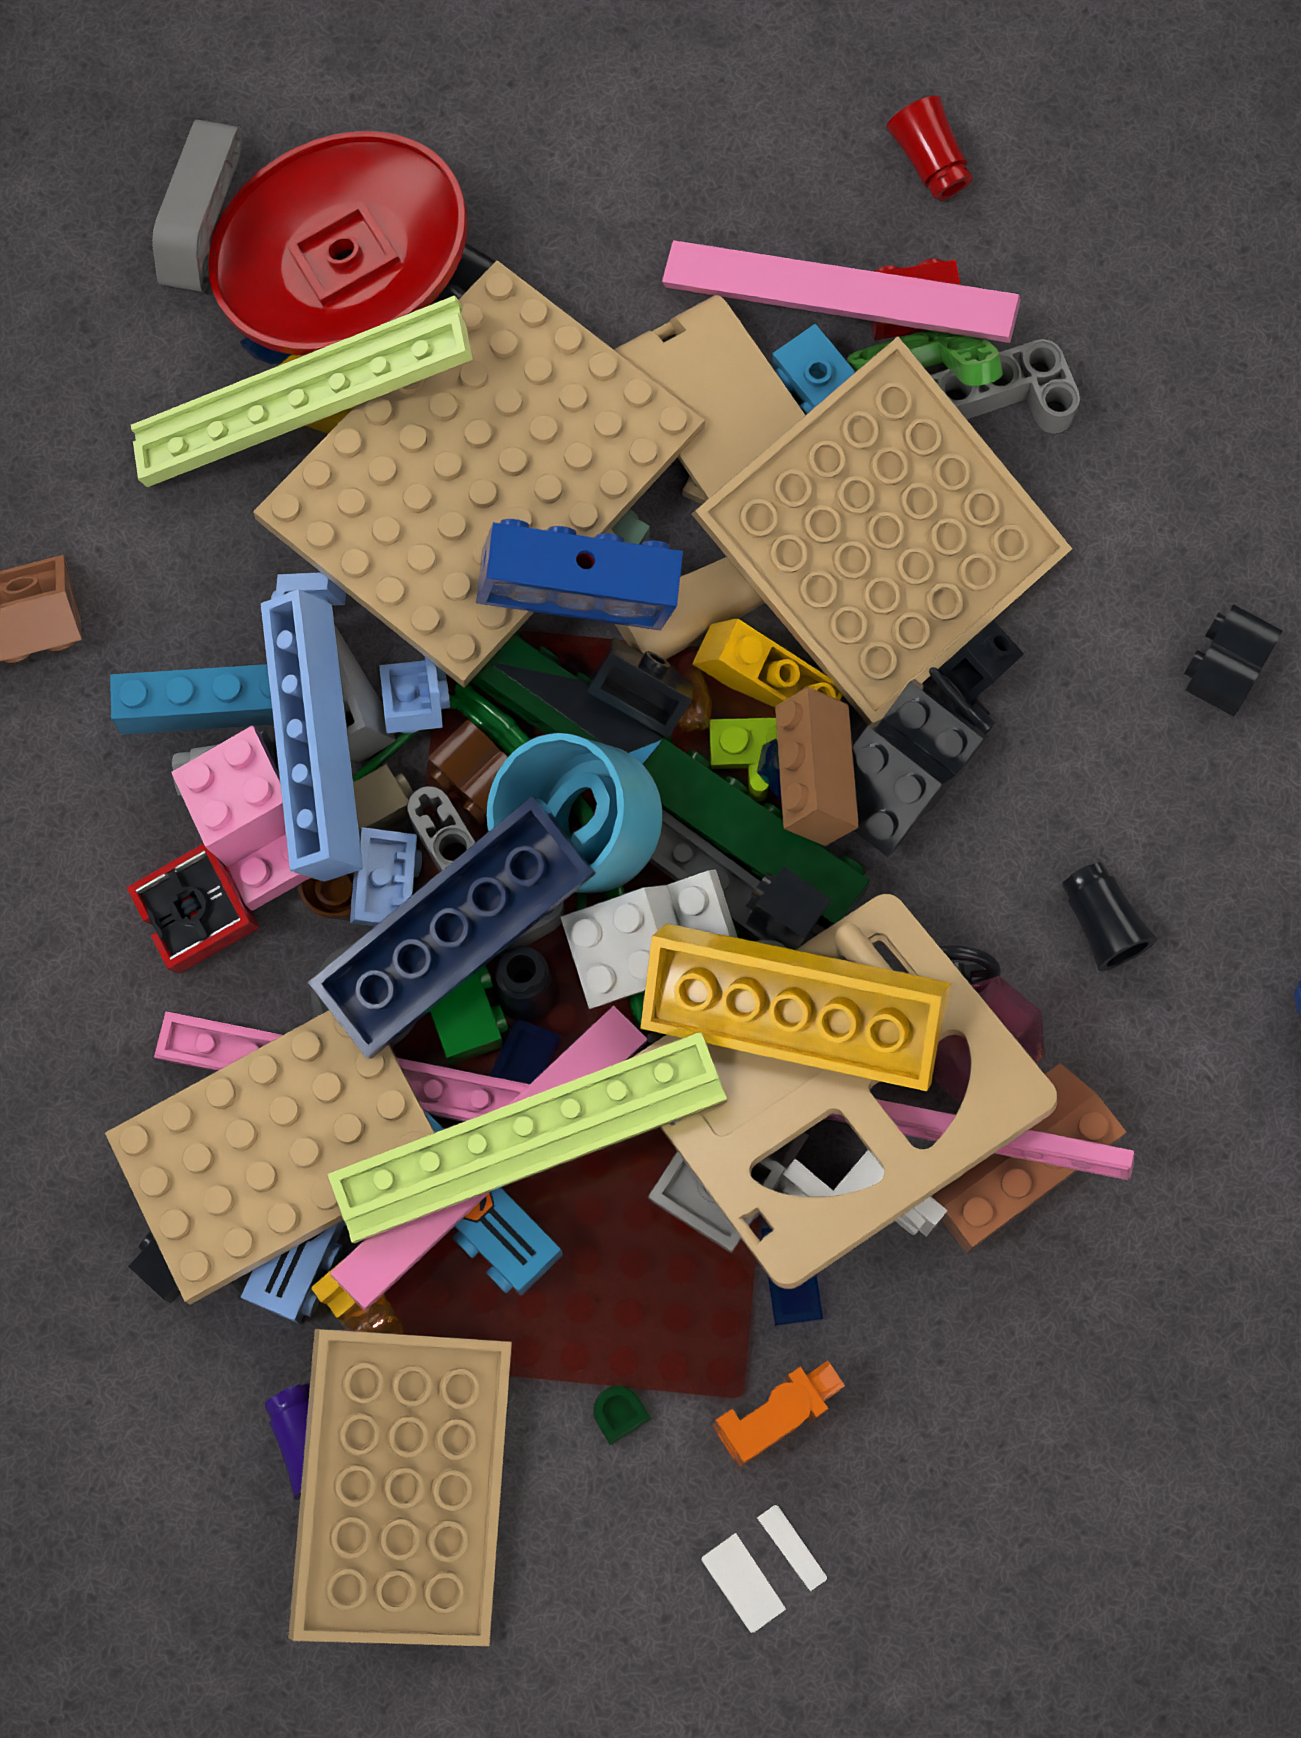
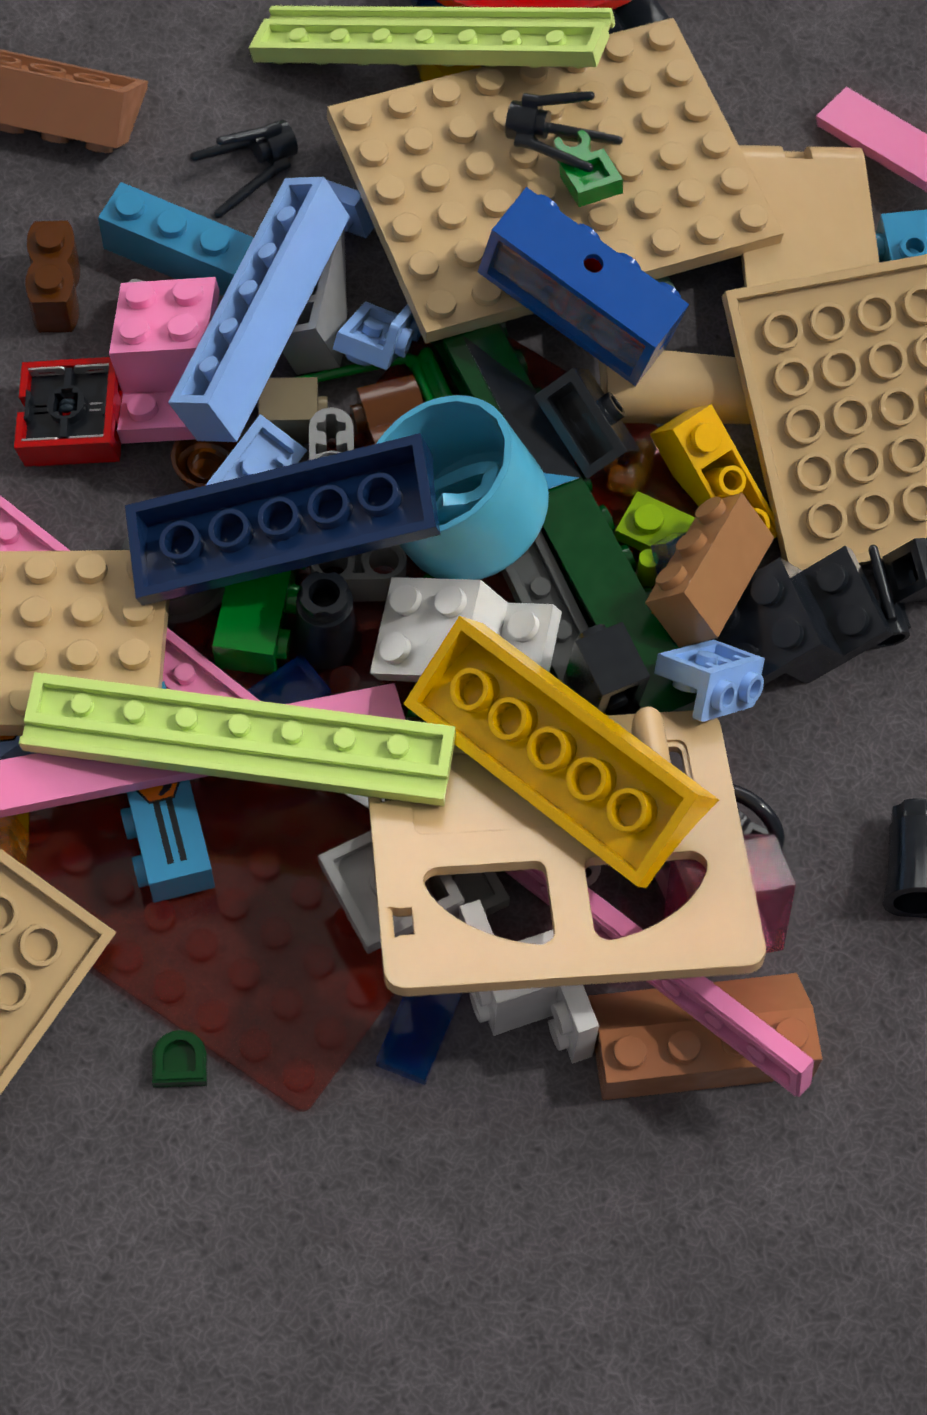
camera: 25 degrees right, 10 degrees down
(99, 788) = (53, 276): none -> reddish brown brick
(209, 560) = (269, 143): none -> black plant
(441, 438) = (529, 122): none -> black plant
(516, 461) = (592, 186): none -> green plate
(743, 1580) = (202, 1284): white sticker -> none
(782, 1412) = (327, 1136): orange hips -> none
(871, 857) = (718, 673): none -> light blue bracket

